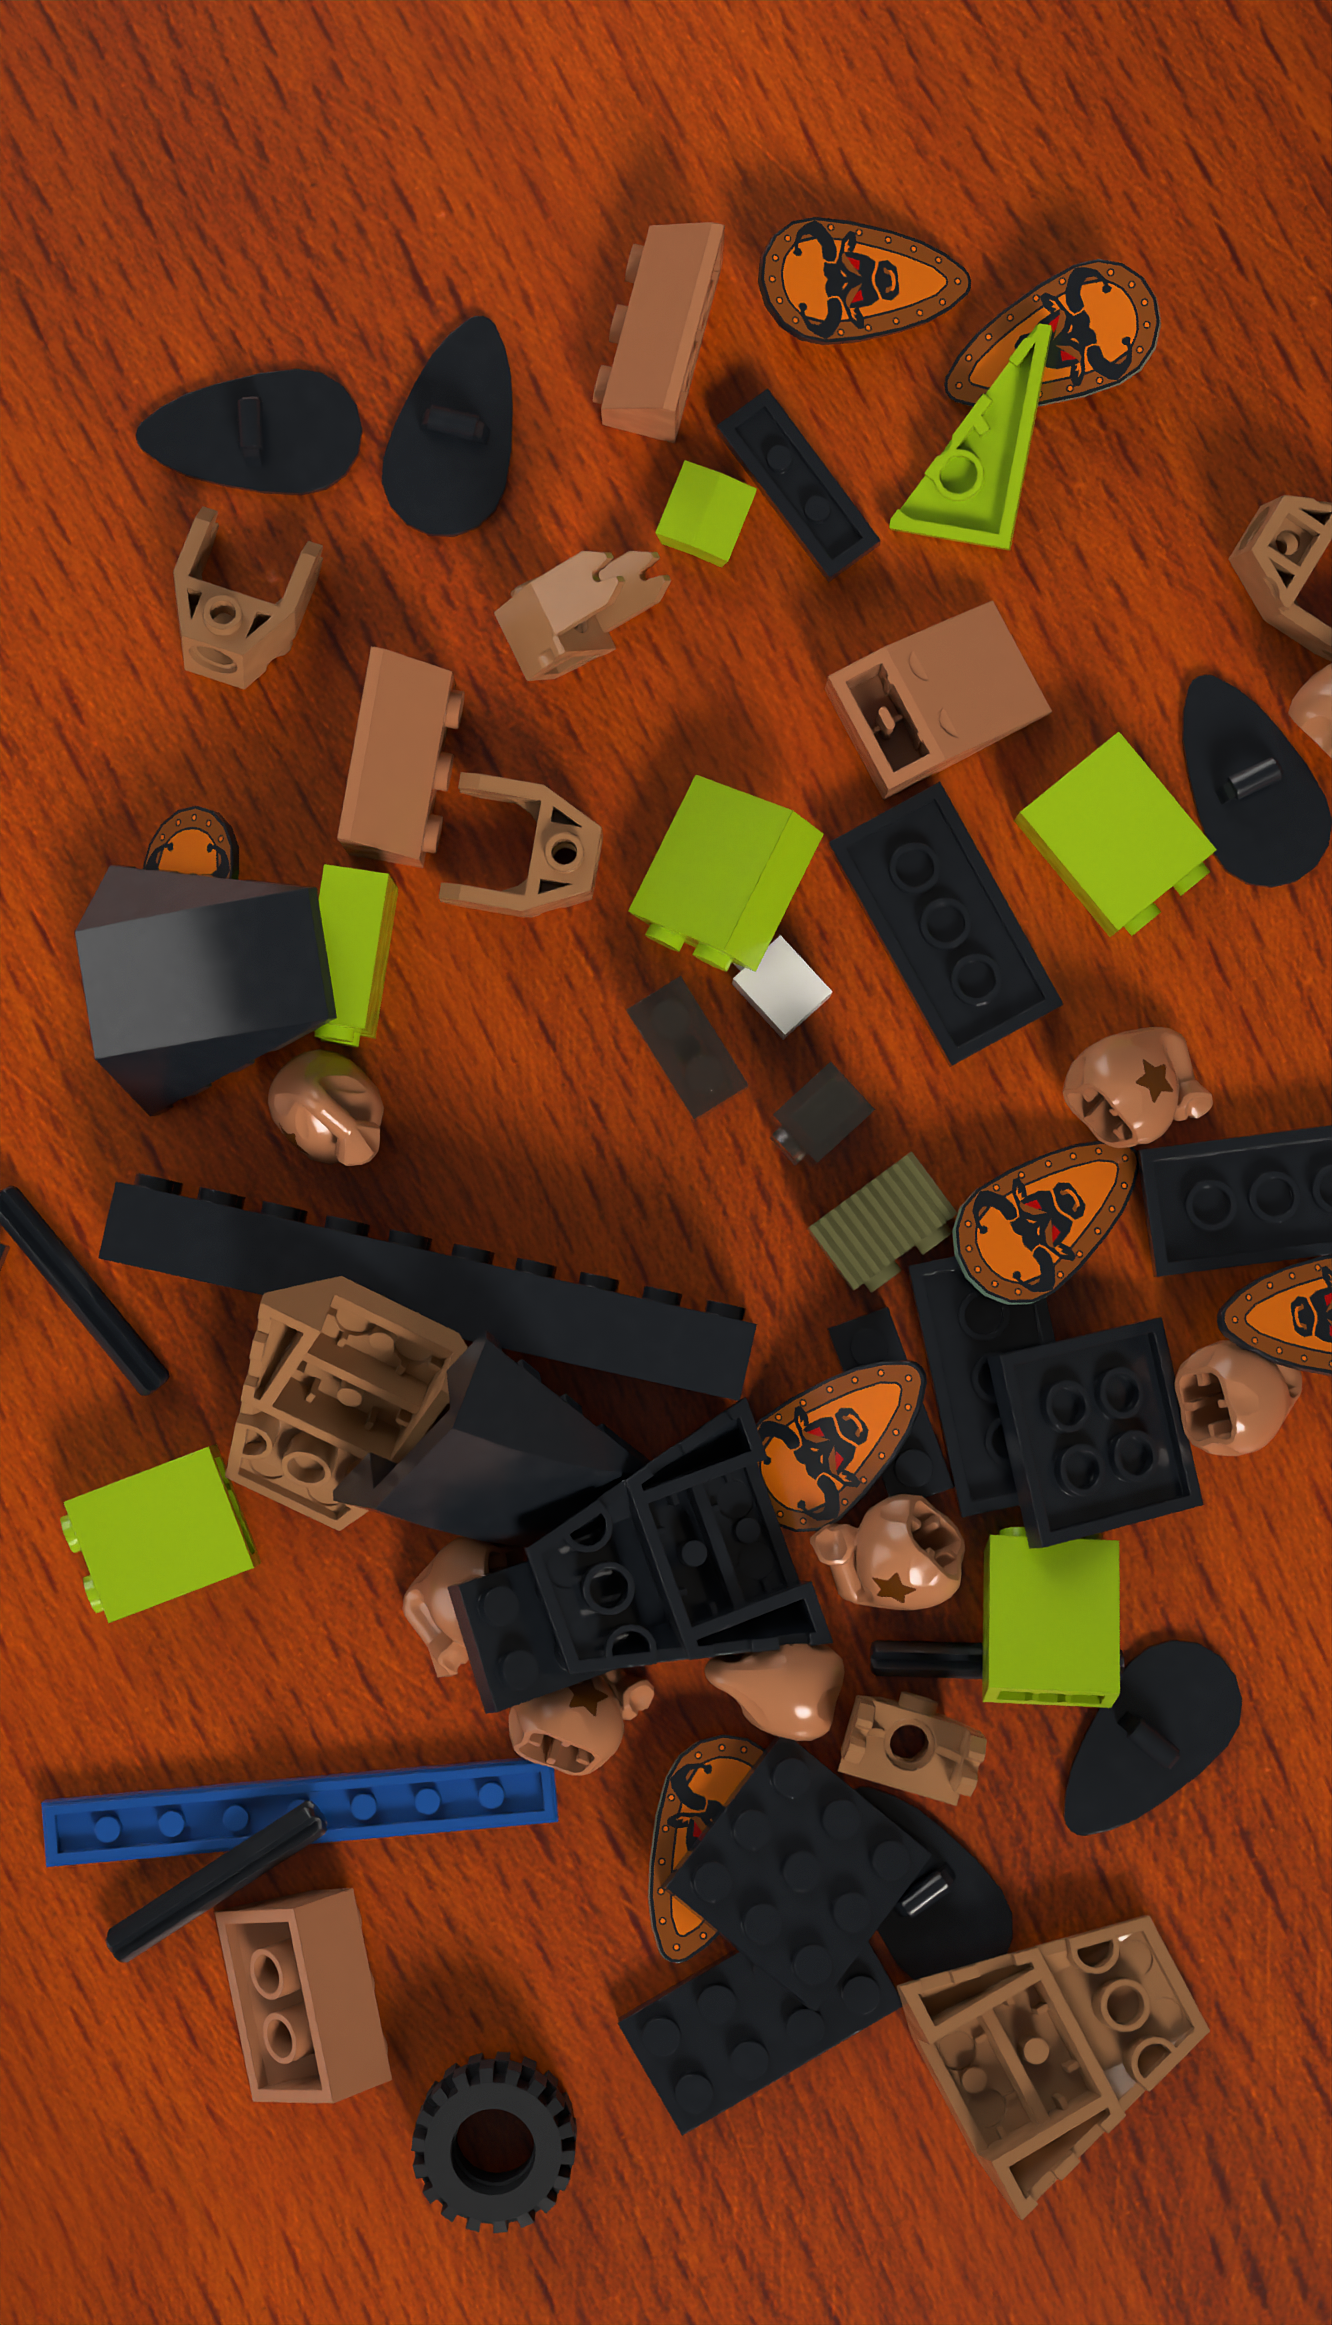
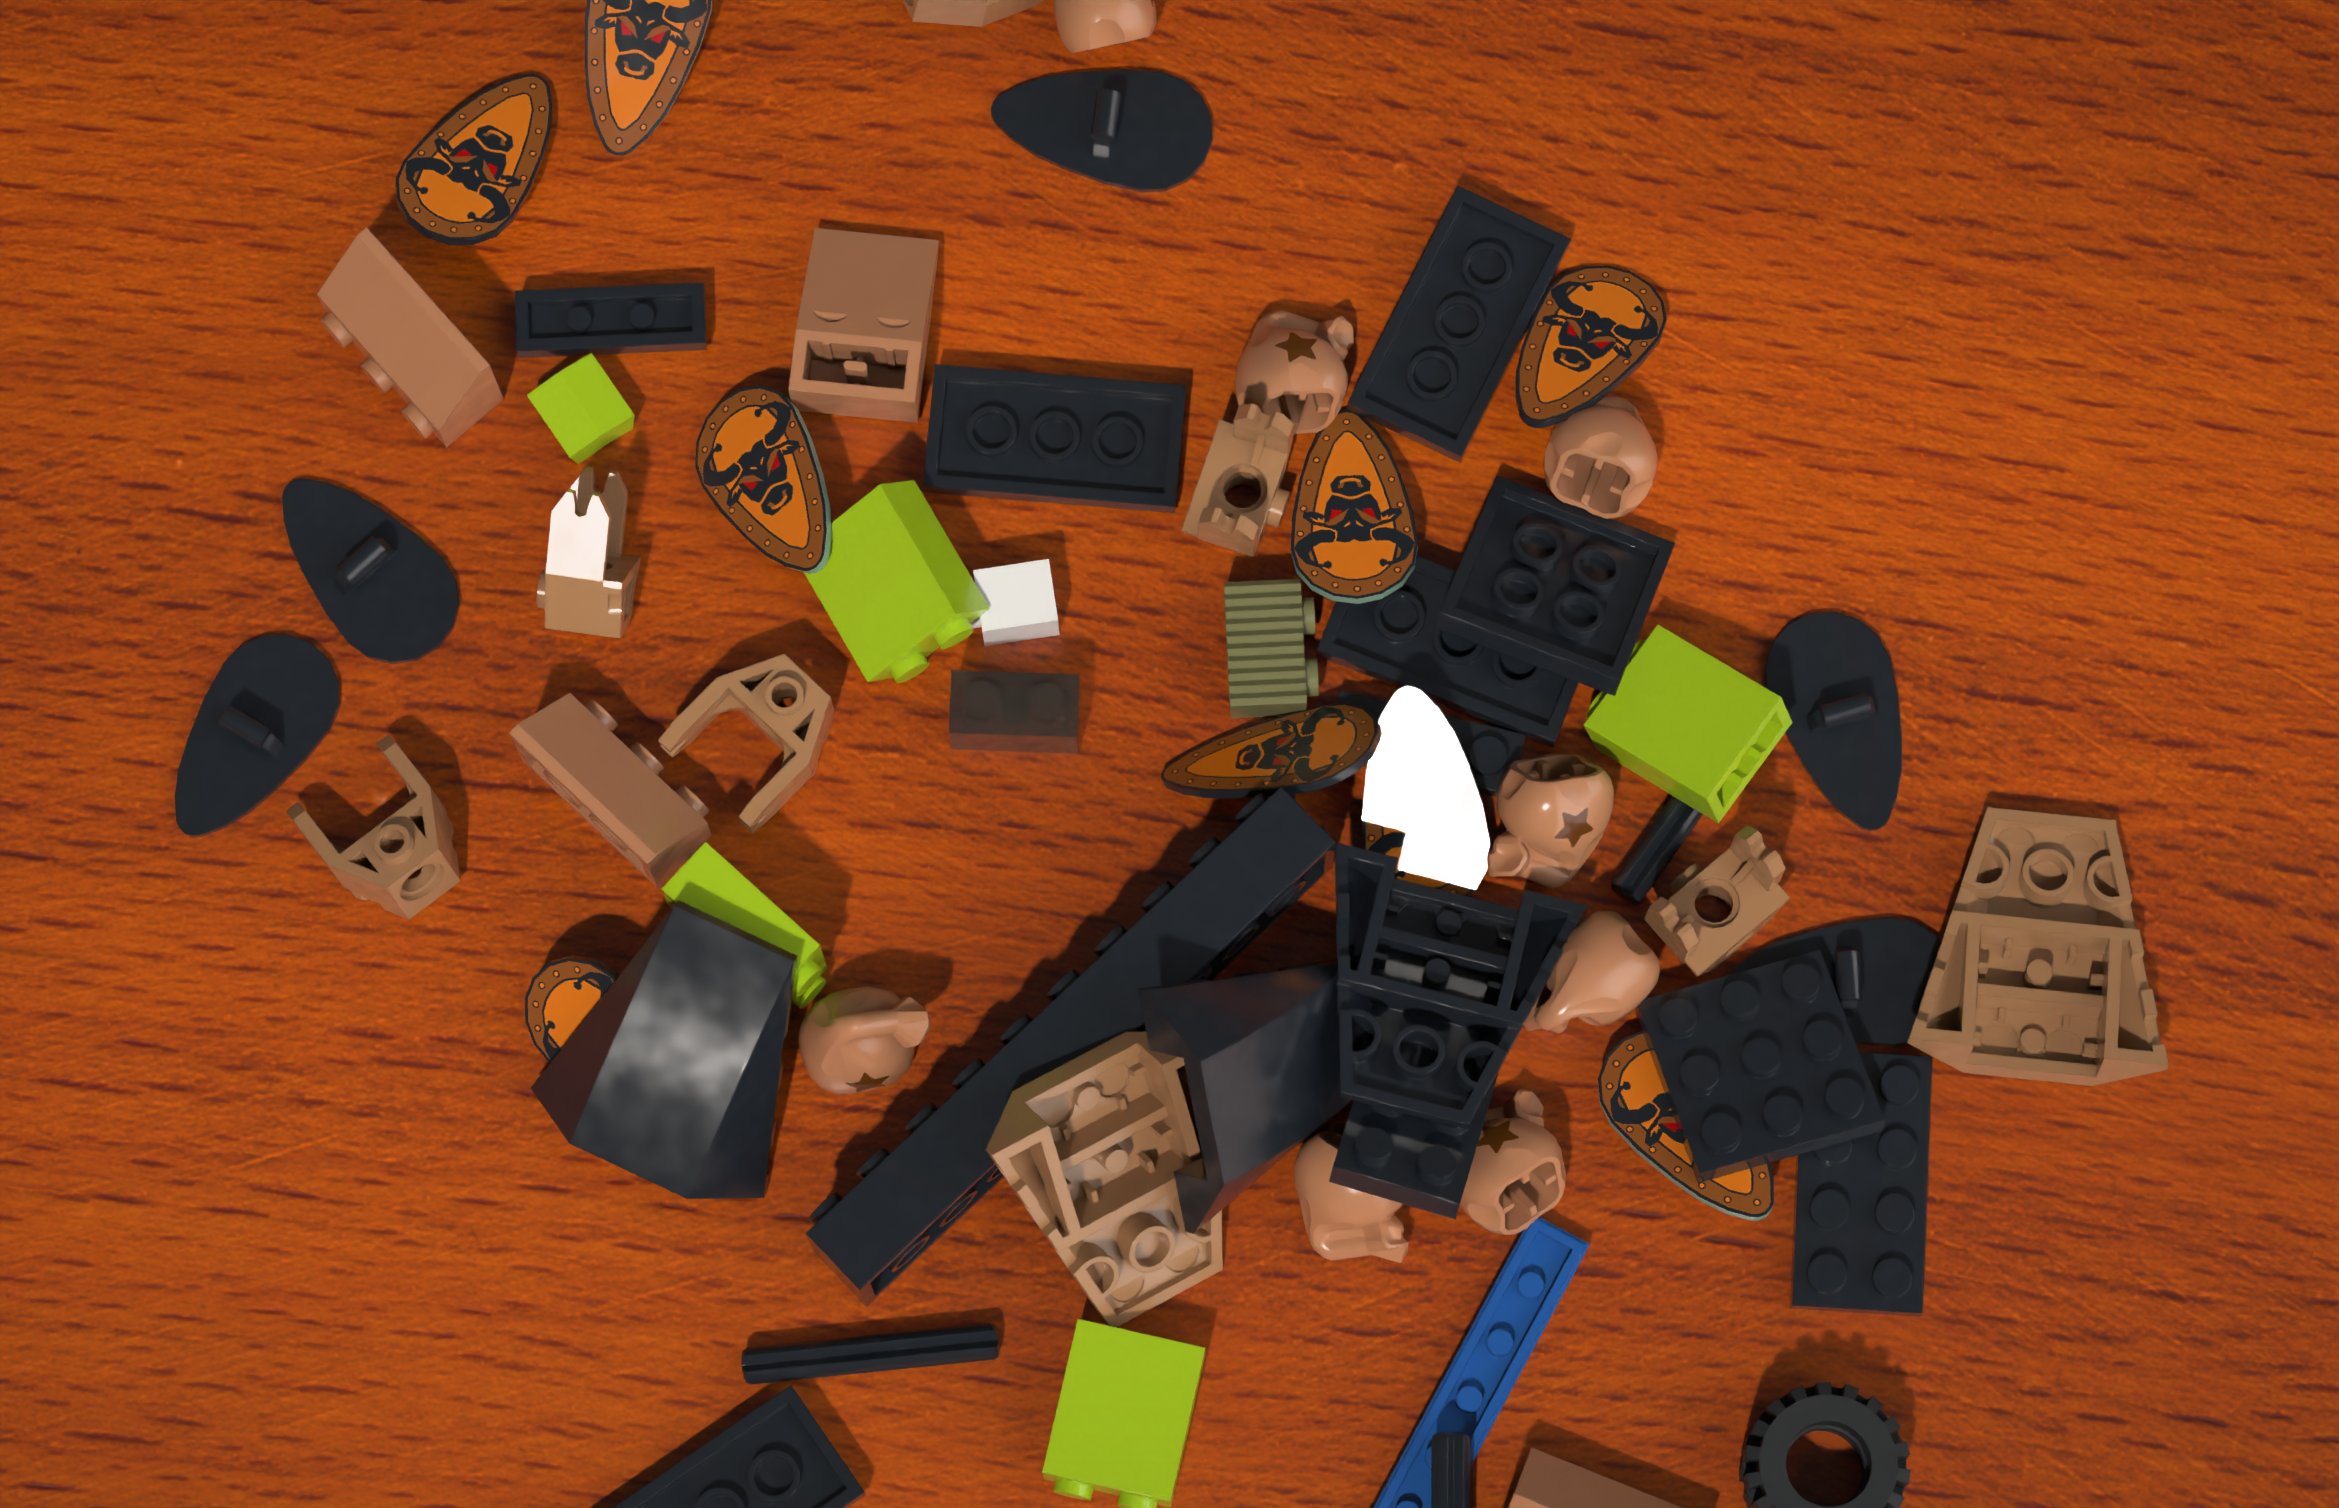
camera: 55 degrees left, 10 degrees down
(747, 708) = (767, 476): none -> shield
(795, 1297) = (1290, 751): none -> shield
(818, 1117) = (1145, 636): clear smoke brick -> none
(979, 477) = (705, 170): lime wing -> none
(1034, 1089) = (1242, 453): none -> medium nougat piece
(1116, 837) = (1078, 255): lime brick -> none

